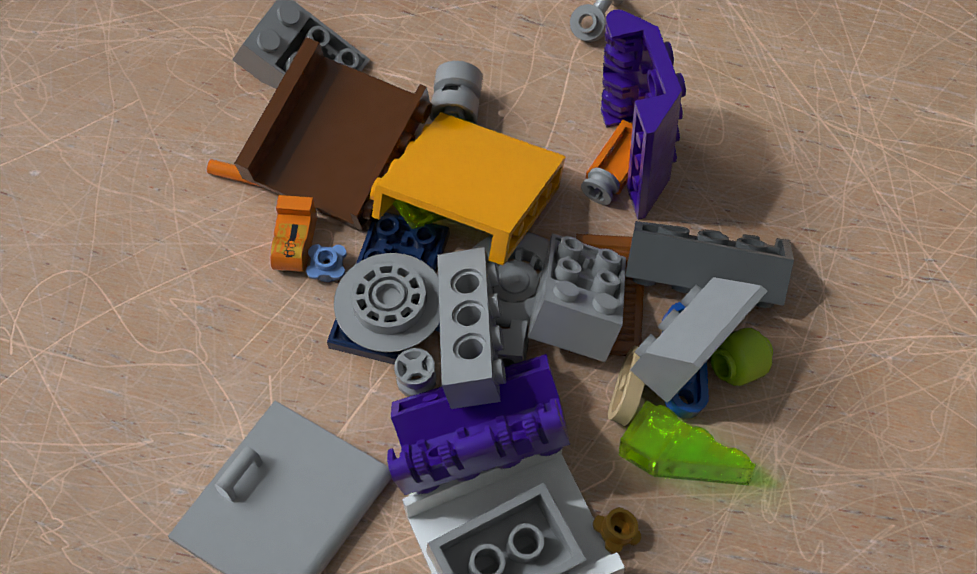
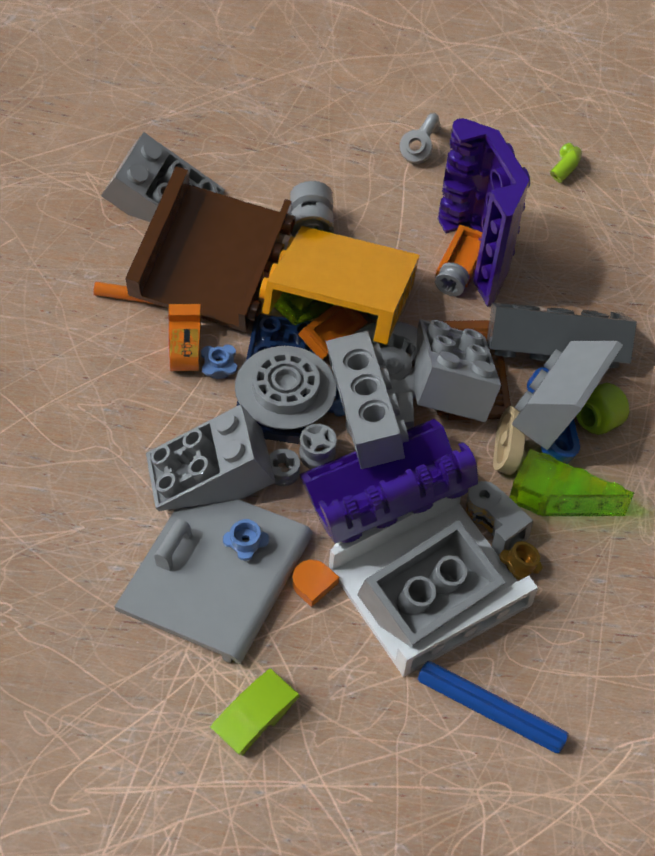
camera: 15 degrees left, 5 degrees down
(296, 383) = (211, 463): none -> light grey slope
(314, 464) = (245, 529): none -> medium blue plate
(372, 380) = (292, 462): none -> light grey bush
(384, 528) = (313, 580): none -> orange tile
(448, 237) = (332, 324): none -> orange tile
(602, 473) = (498, 515): none -> light grey leg
(764, 47) = (570, 159): none -> lime arm

